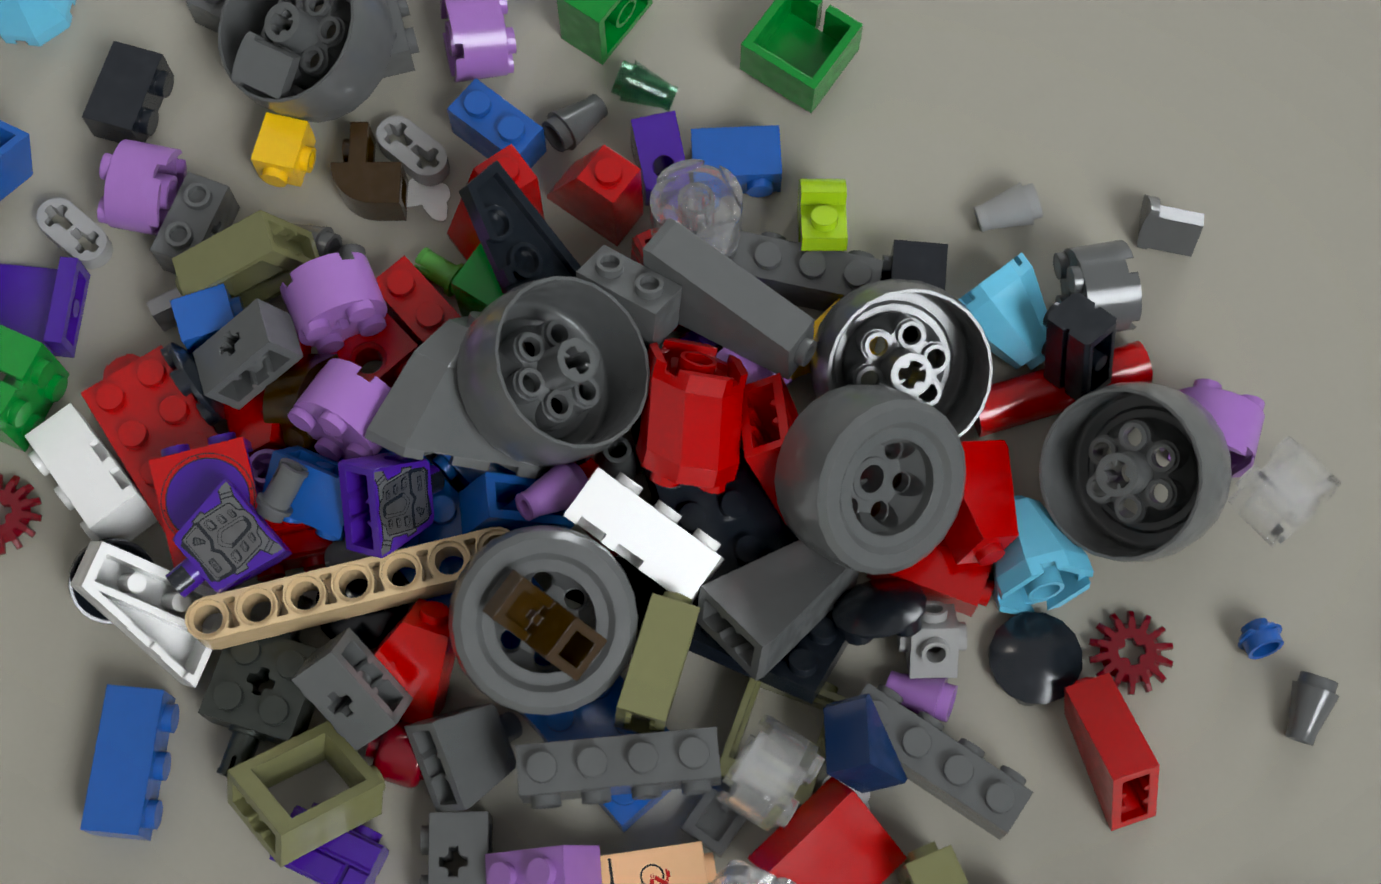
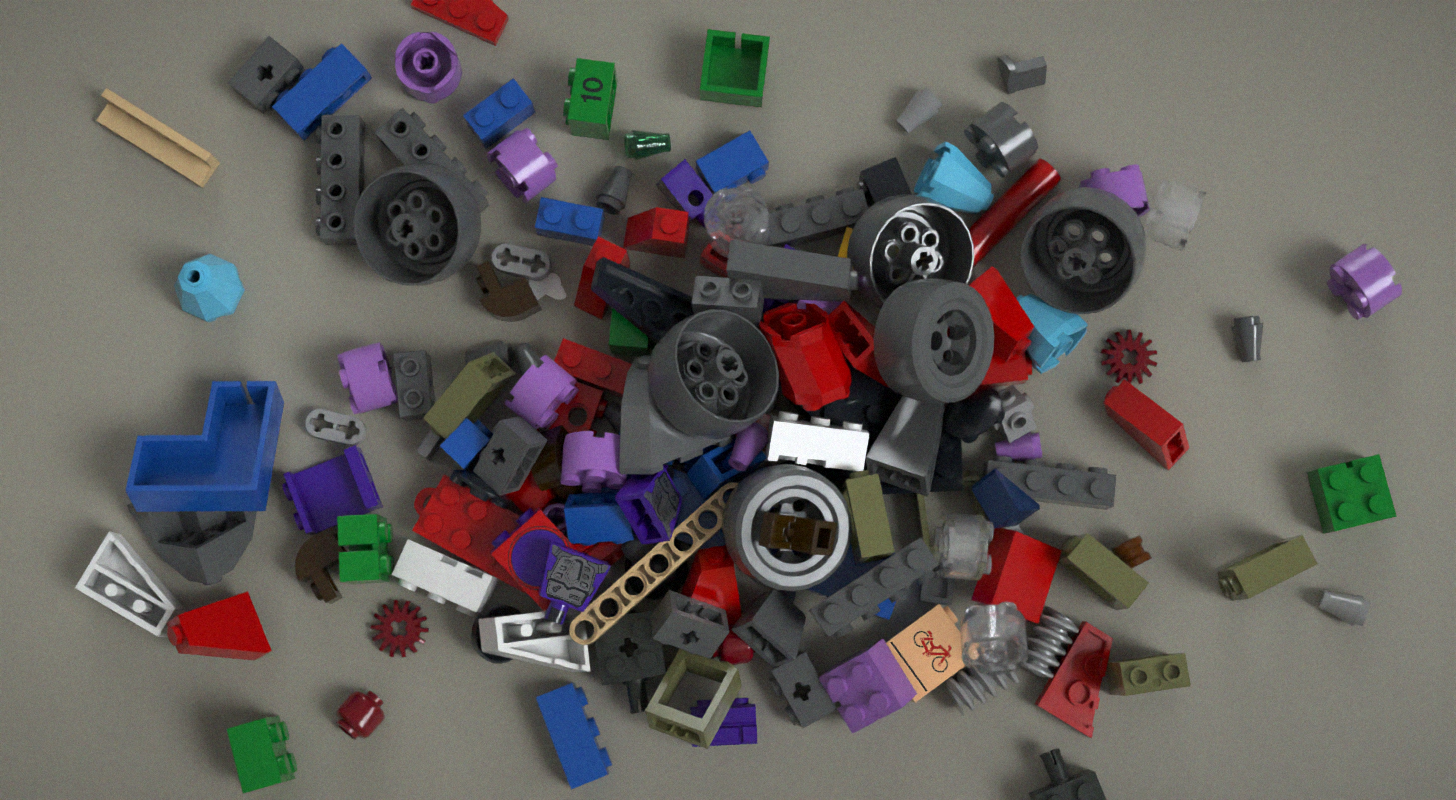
camera: 30 degrees left, 10 degrees up
(128, 94) = (318, 319): black brick -> none
(264, 66) = (408, 262): dark grey tile -> none
(277, 499) = (583, 537): dark grey pin -> none
(284, 150) = (441, 305): yellow brick -> none
(437, 269) = (587, 333): bright green pin -> none
(822, 214) = (809, 178): lime brick -> none
(1035, 658) = (1074, 390): black dish -> none
(1078, 345) = (1012, 188): black brick -> none
(1260, 638) = (1200, 309): blue plate -> none

